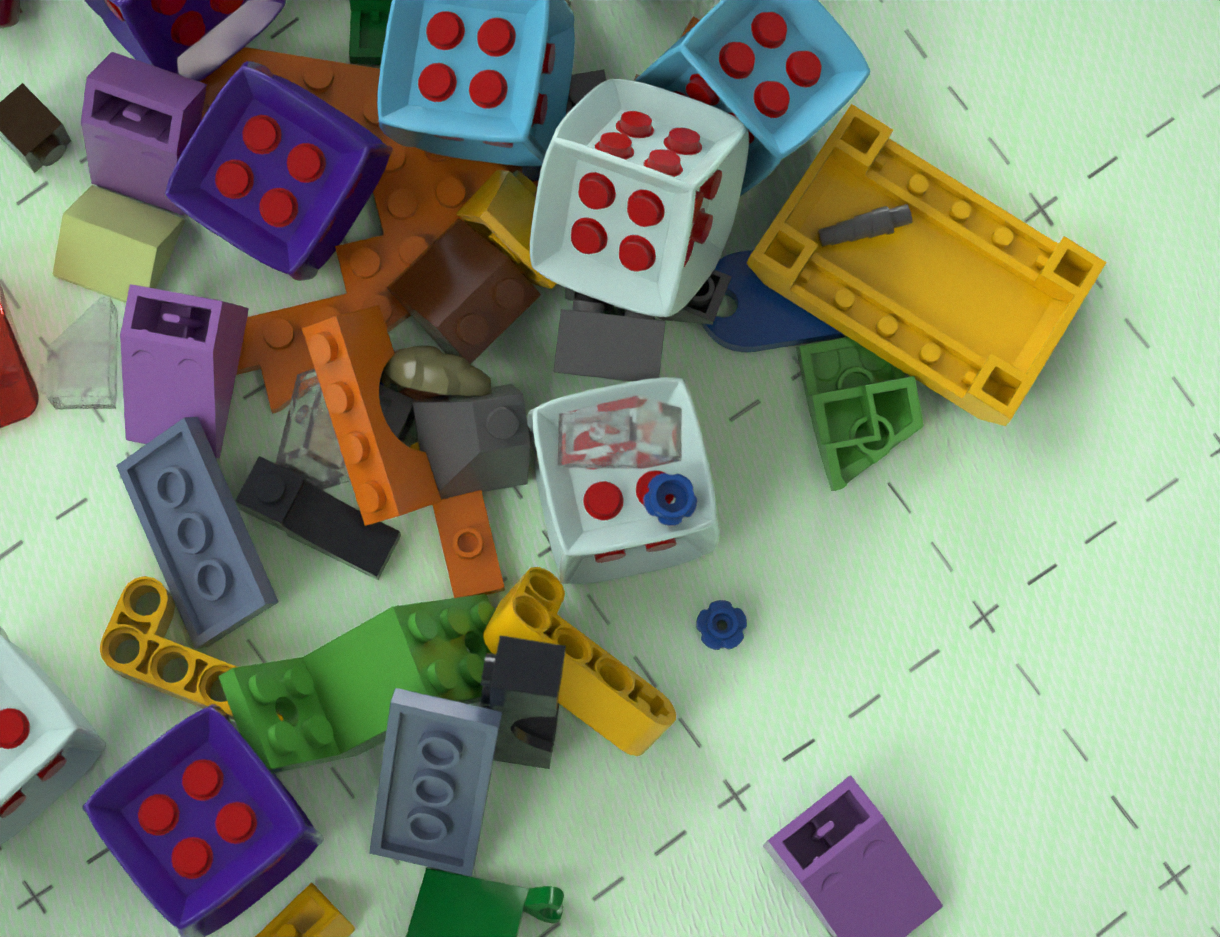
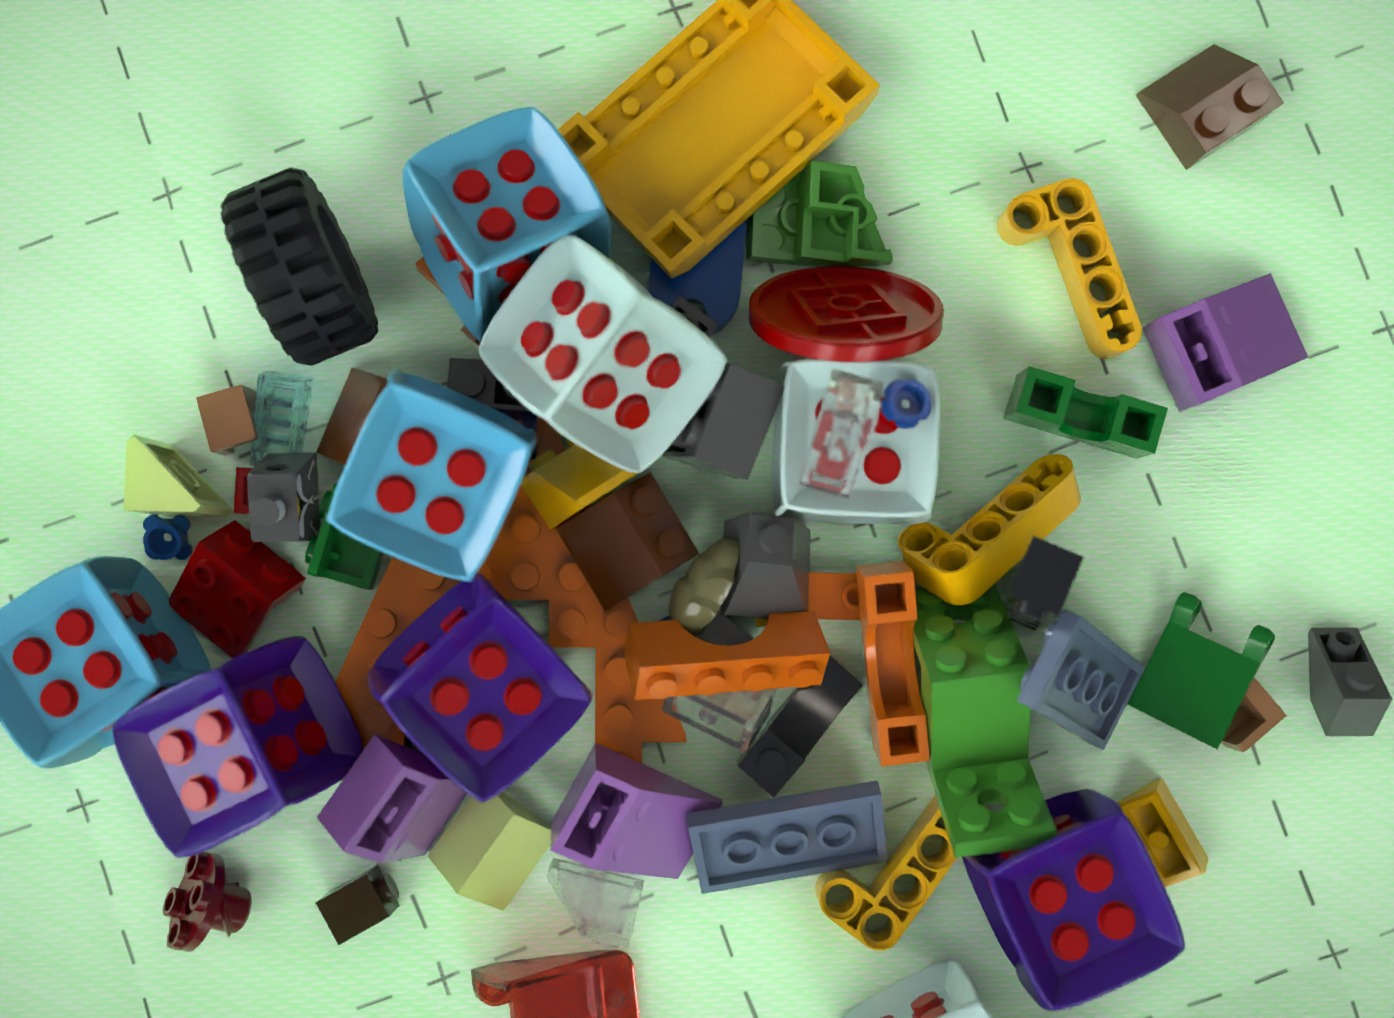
camera: 70 degrees left, 10 degrees up
(450, 569) = (893, 691): none -> orange arch
(721, 611) = (970, 393): blue plate -> none
(726, 730) = (1106, 422): none -> green arch
(757, 440) = (846, 314): none -> red plate
(866, 225) = (662, 159): dark grey animal -> none
(882, 694) = (1079, 271): none -> yellow beam
(1108, 789) = (1209, 103): none -> slope

